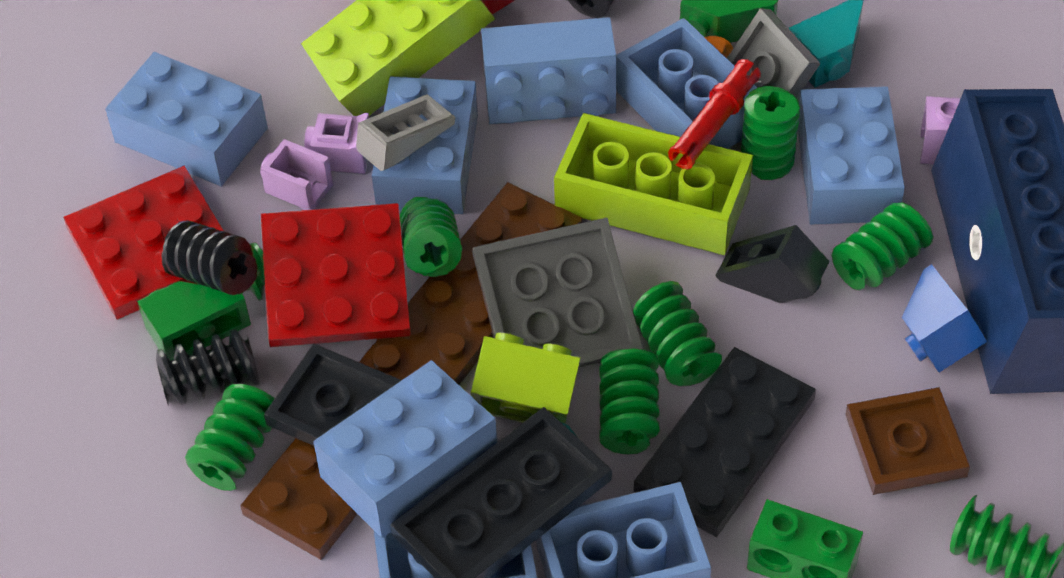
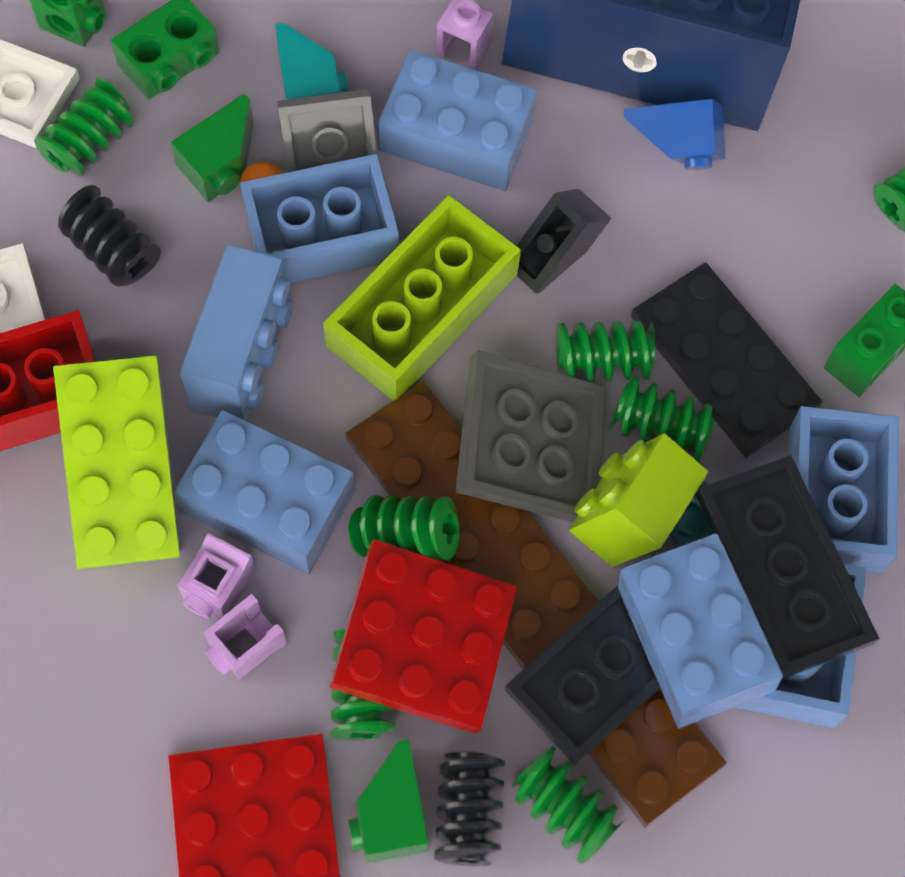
camera: 75 degrees left, 15 degrees up
(187, 118) = (105, 731): medium blue brick -> none
(209, 257) = (357, 760): black piece -> none
(384, 149) = (289, 528): light grey slope -> none
(724, 101) = (383, 188): red pin -> none
(770, 131) = (412, 168): green piece -> none
(881, 246) = (576, 139): green piece -> none
(907, 441) = (786, 215): reddish brown plate -> none

